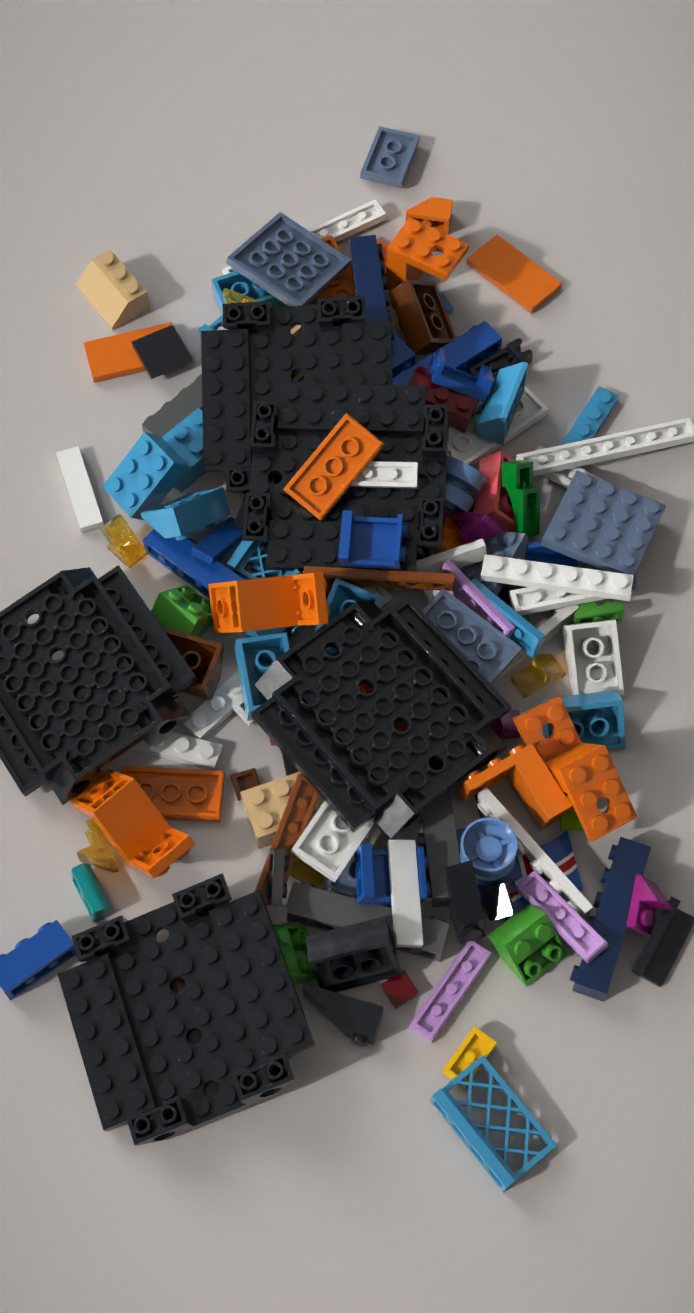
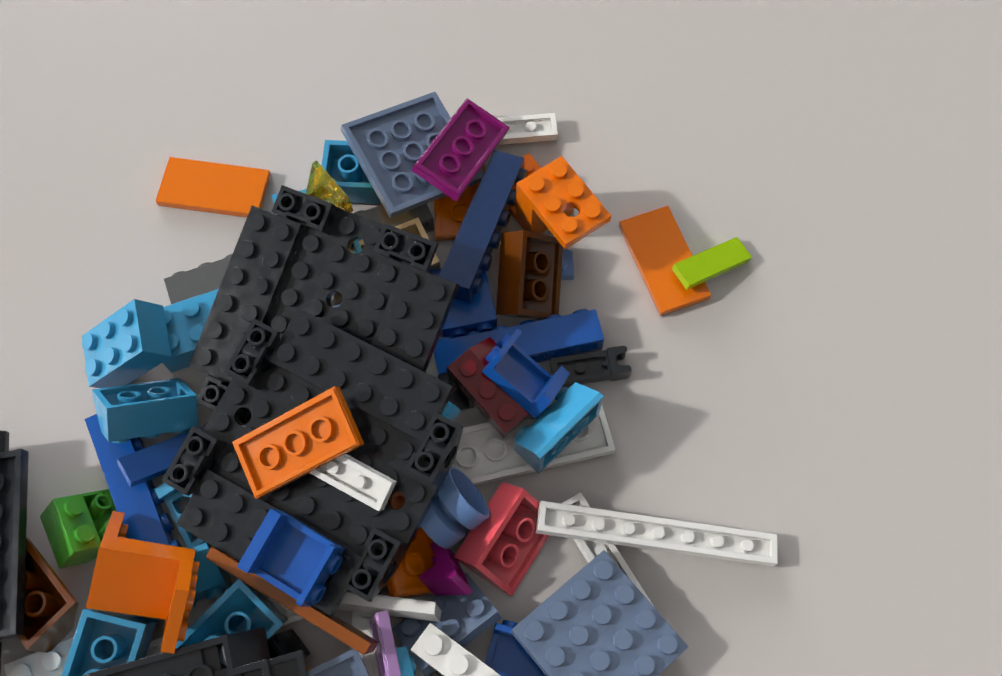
camera: 25 degrees right, 5 degrees up
(79, 489) = (70, 324): white tile -> none
(113, 290) = (231, 110): tan slope -> none
(123, 541) = (69, 408): clear yellow slope -> none
(161, 352) = (232, 199): black tile -> none
(325, 244) = (460, 149): none -> magenta plate
(390, 157) = (598, 69): sand blue plate -> none
(433, 212) = (606, 155): orange slope -> none
(525, 498) = (521, 558): green slope -> none
(550, 261) = (711, 263): none -> lime tile
(592, 416) = (658, 483): dark azure plate -> none

